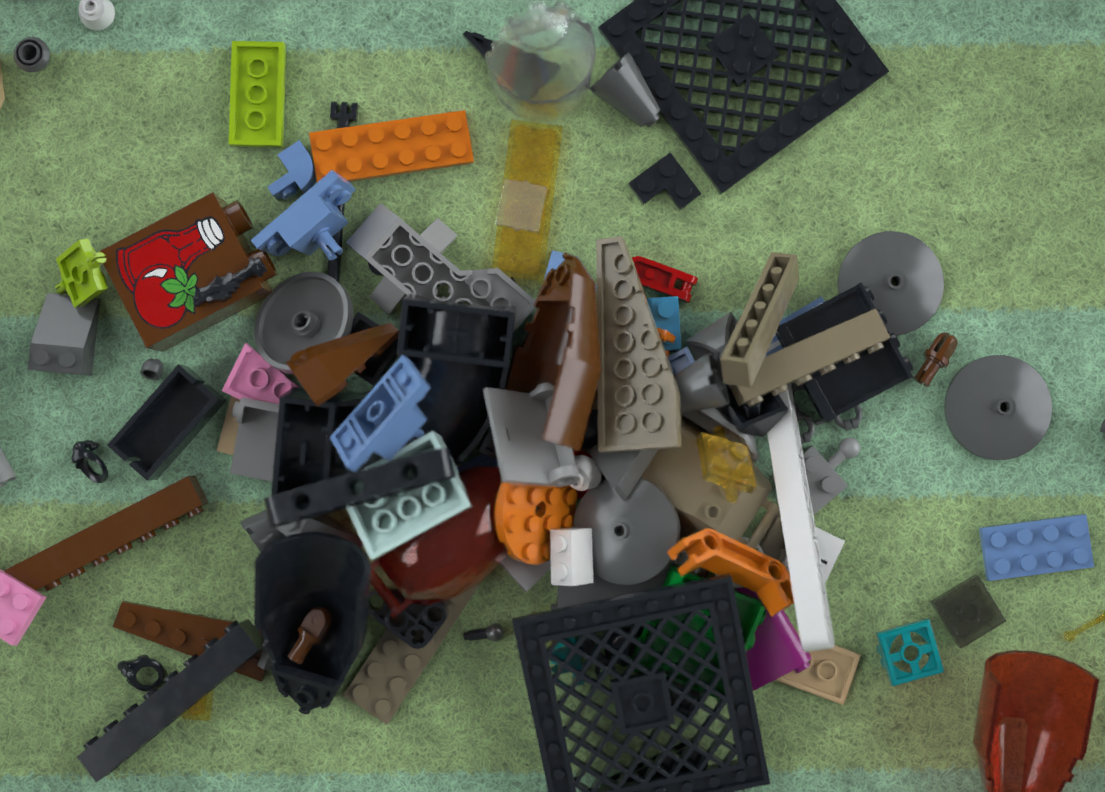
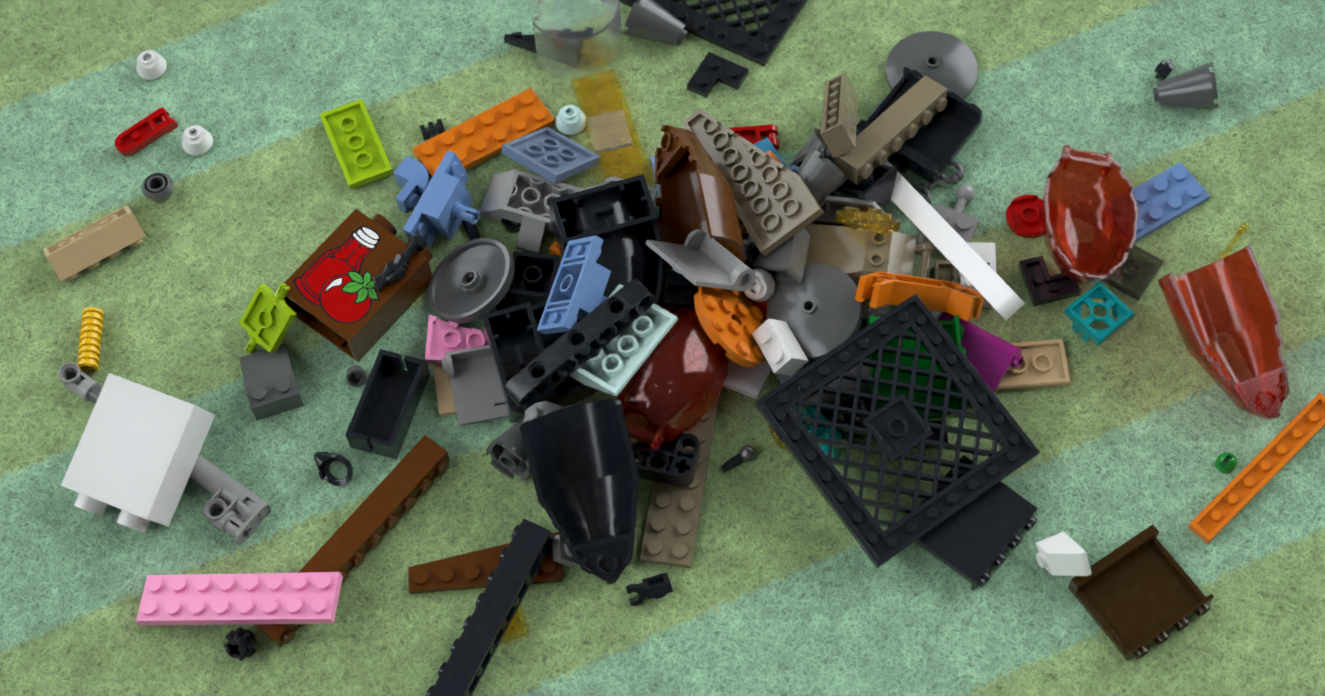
camera: 20 degrees left, 25 degrees down
(131, 667) = (440, 617): black piece -> none
(311, 632) = (588, 506): reddish brown arm -> none
(328, 364) = (512, 282): reddish brown wedge -> none
(342, 732) = (652, 587): none -> black plate
(445, 211) = (550, 155): none -> sand blue plate
(489, 174) = (570, 120): none -> light aqua cone
(872, 591) = (1043, 287): none -> black plate
(894, 497) = (1024, 216): none -> red tile
(936, 357) = (996, 103): reddish brown arm -> none
(957, 552) = (1088, 215): none -> clear red windscreen
(975, 411) = (1065, 114): dark grey dish -> none

